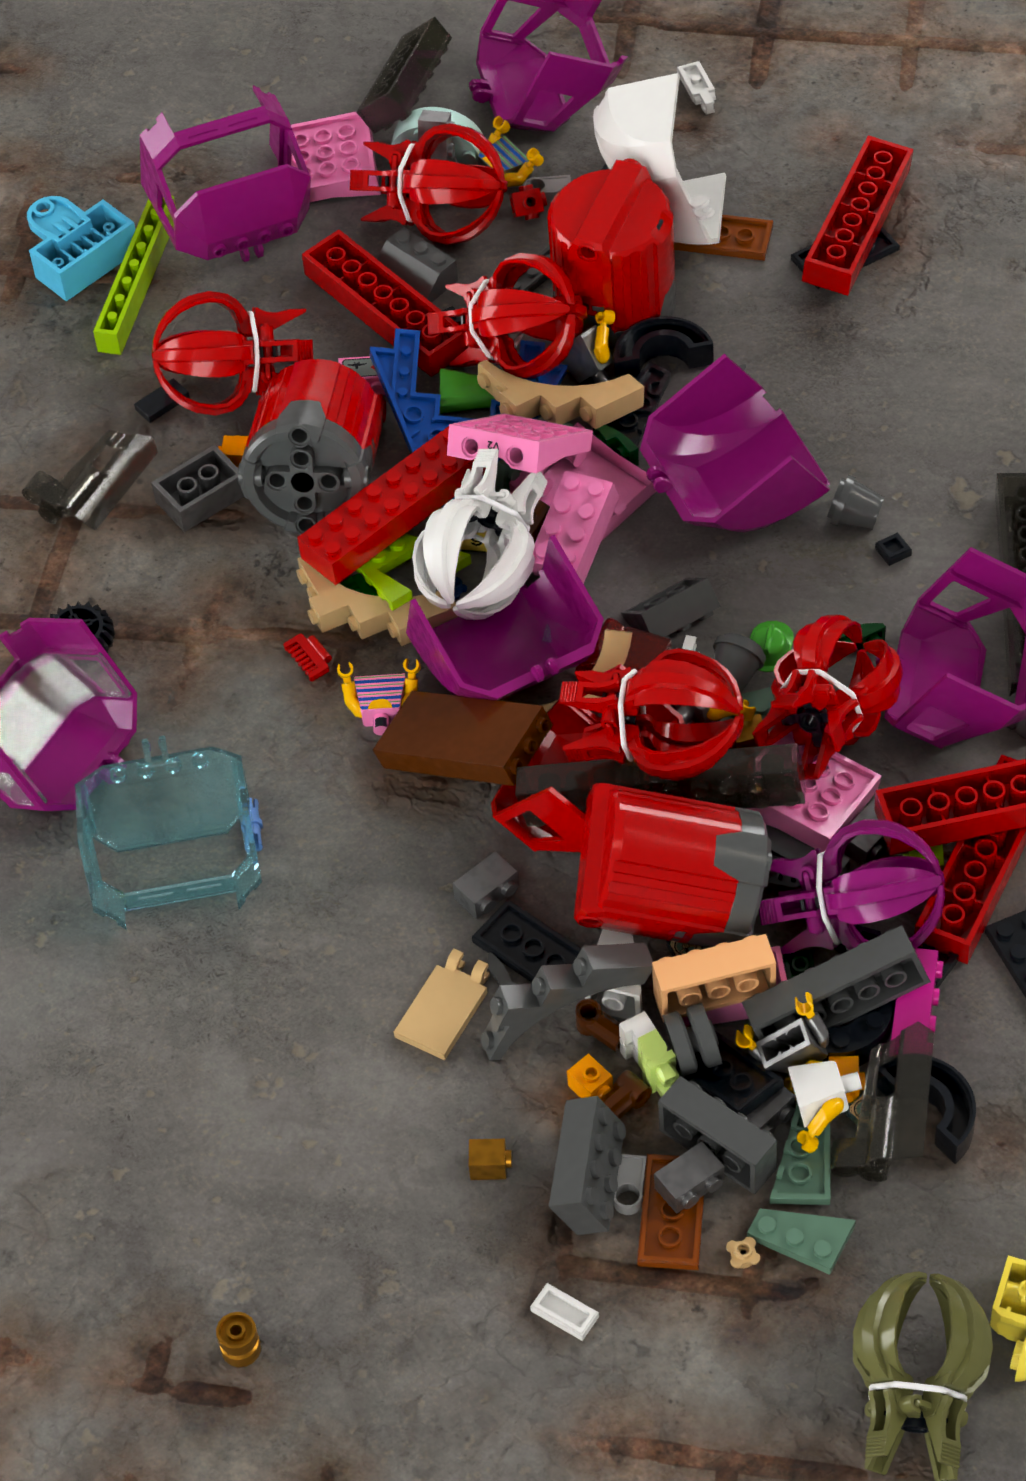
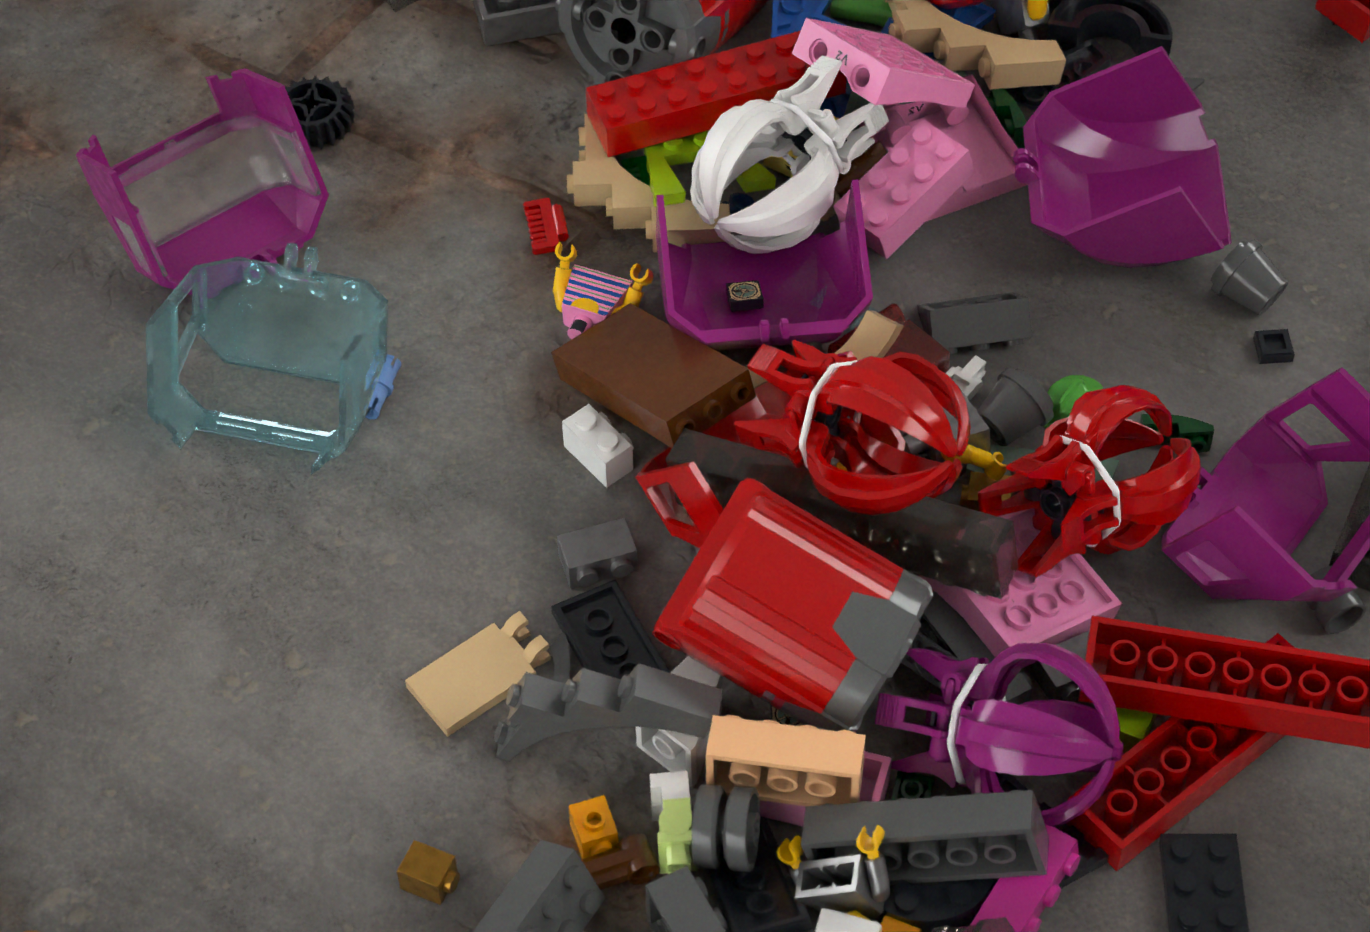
camera: 20 degrees right, 0 degrees up
(443, 806) = (598, 445): none -> white brick
(492, 653) = (744, 295): none -> tile
(601, 1027) = (636, 767): reddish brown piece -> none

